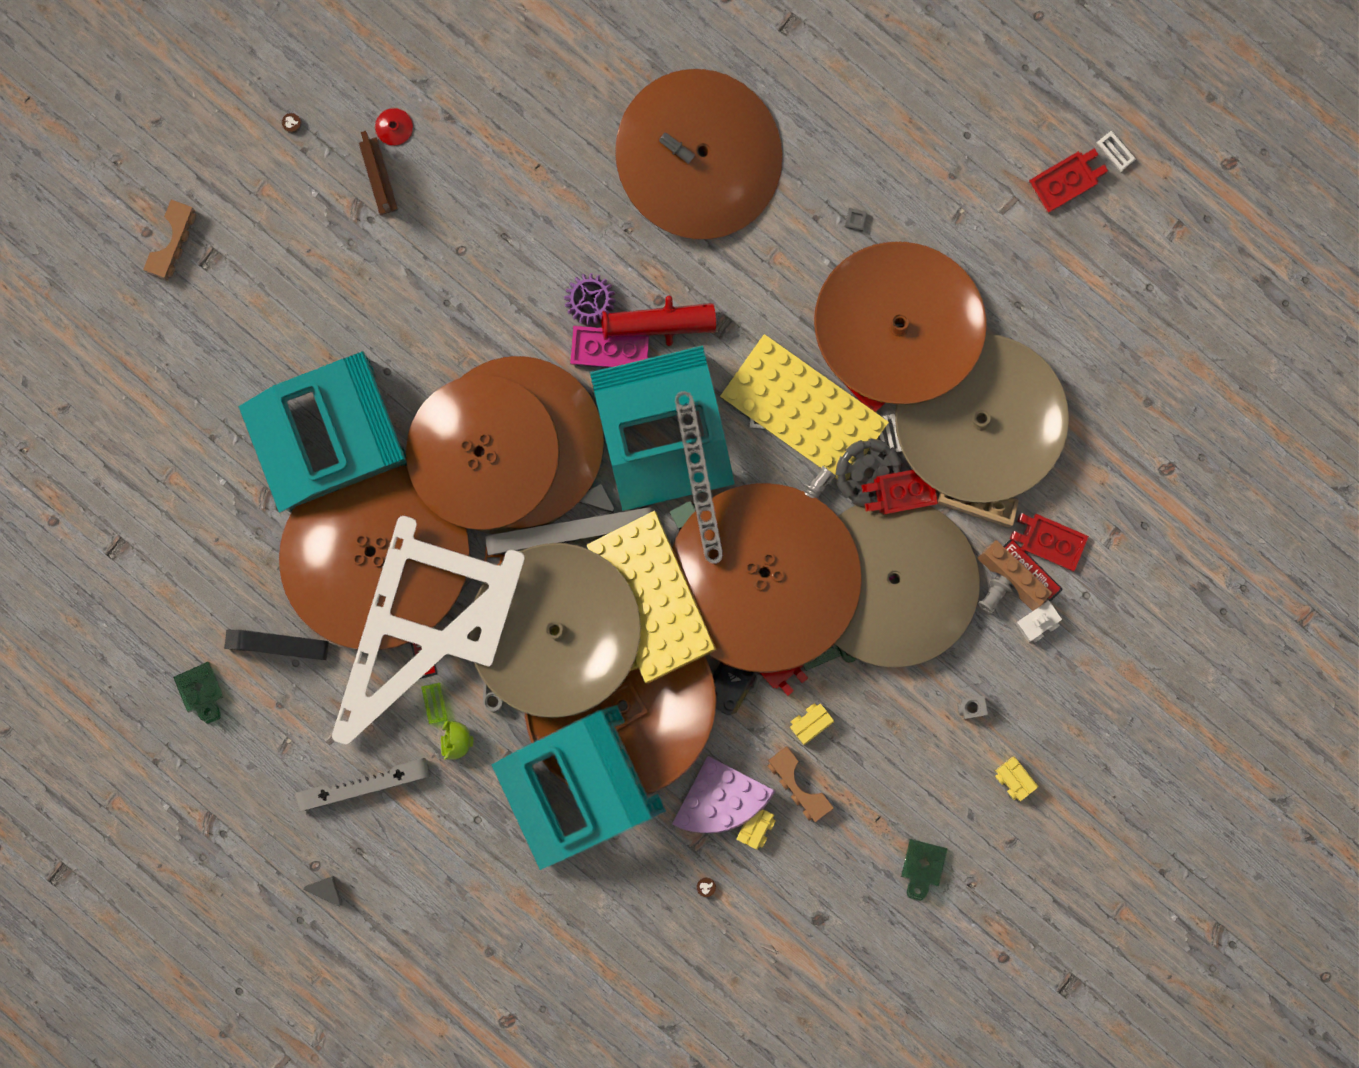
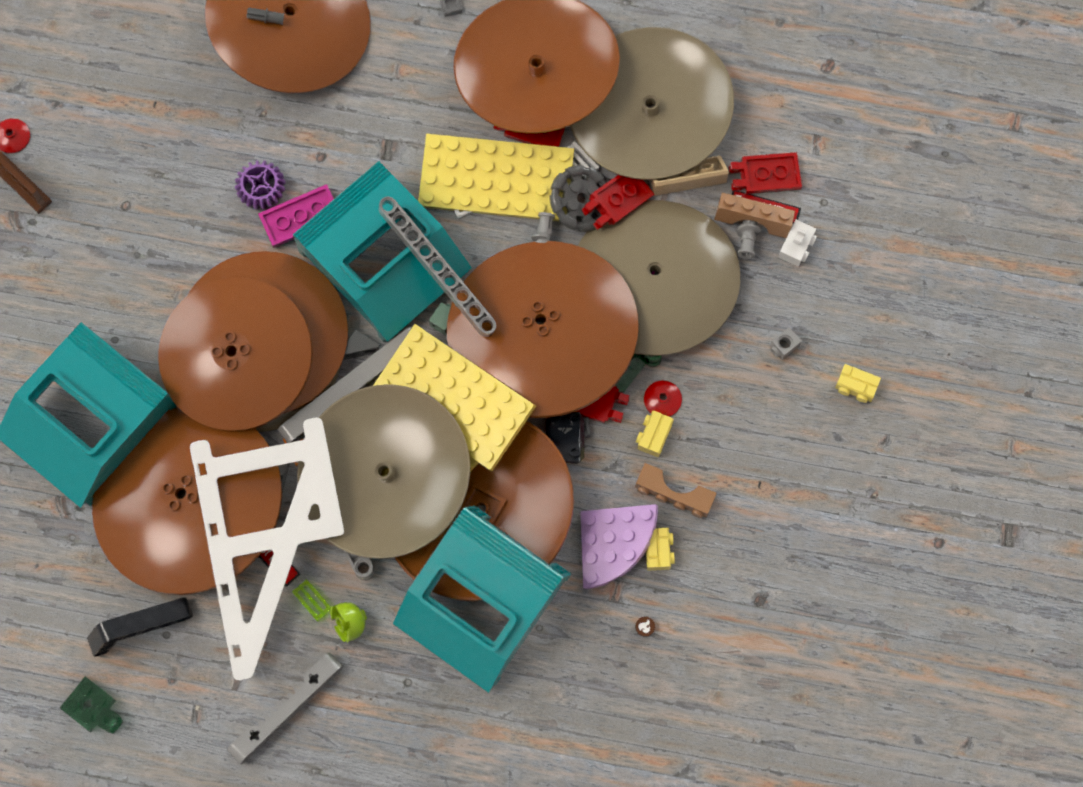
camera: 30 degrees left, 10 degrees down
(660, 321) = (331, 168): red piece -> none
(827, 698) = (666, 407): none -> red dish
(922, 877) = (827, 512): clear green plate -> none

